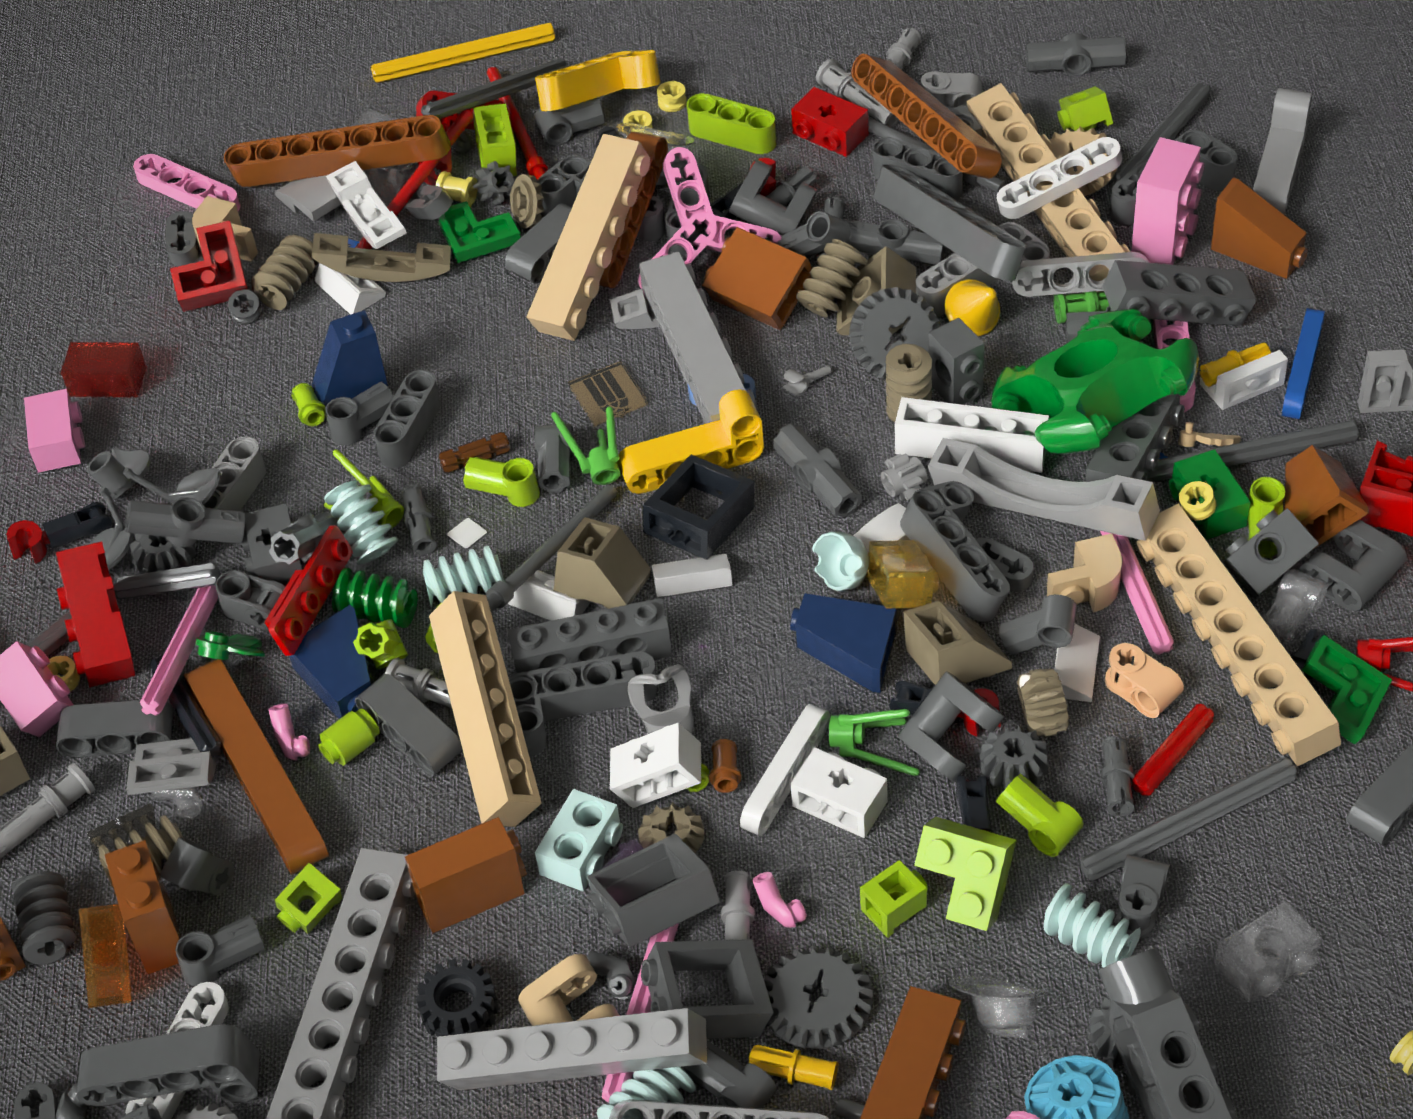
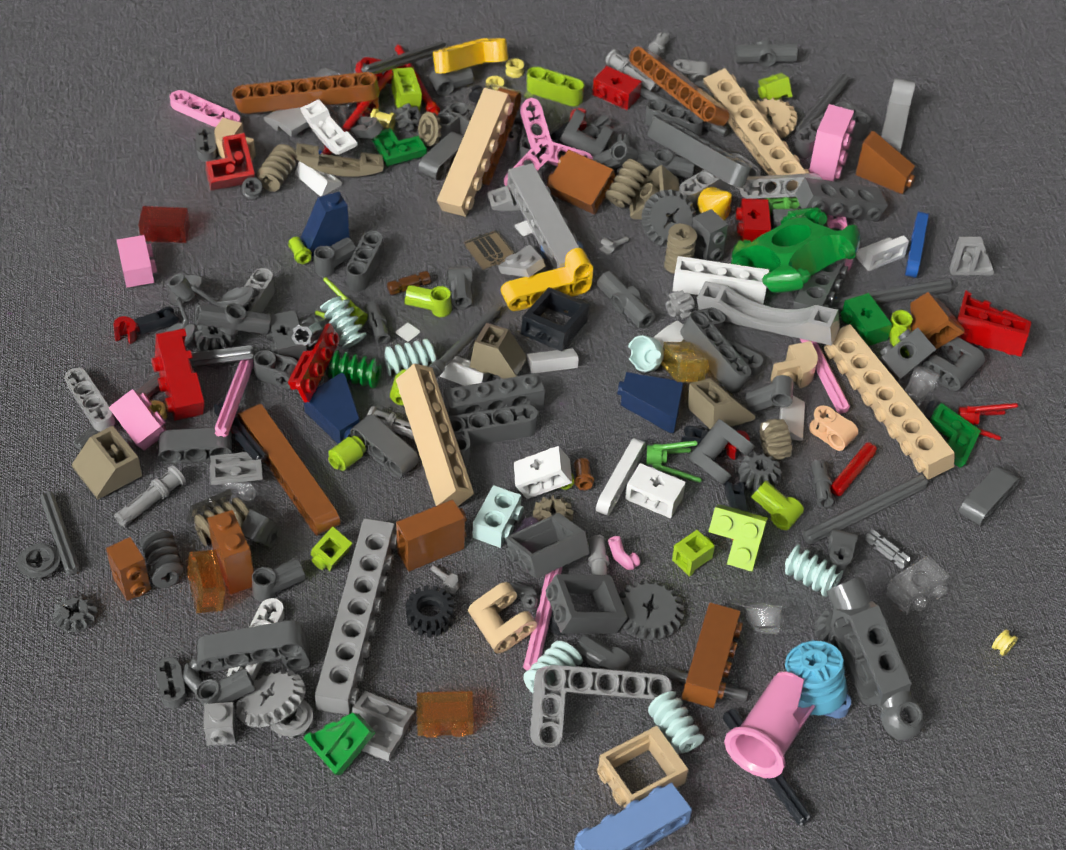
camera: 10 degrees left, 0 degrees up
(219, 645) = (260, 395): green plate -> none
(284, 732) = (305, 451): bright pink arm -> none
(380, 643) = (363, 397): lime piece -> none
(463, 52) = (378, 35): yellow axle -> none
(496, 950) = (450, 581): none -> light grey hand
(572, 1049) = (508, 637): light grey brick -> none
(603, 459) = (492, 290): bright green plant -> none
(655, 415) = (523, 263): none -> light grey wing
(657, 720) = (536, 446): light grey piece -> none
(664, 357) = (523, 228): none -> white sticker
(795, 1066) = (641, 649): yellow axle -> none
(1034, 327) = (753, 218): none -> red brick
(1062, 182) = (783, 115): white beam -> none
(1188, 437) = (850, 286): tan piece -> none
(1195, 490) = (861, 316): light yellow bush -> none
(1222, 887) = (888, 549): none -> axle
(1231, 361) = (875, 240): yellow axle -> none

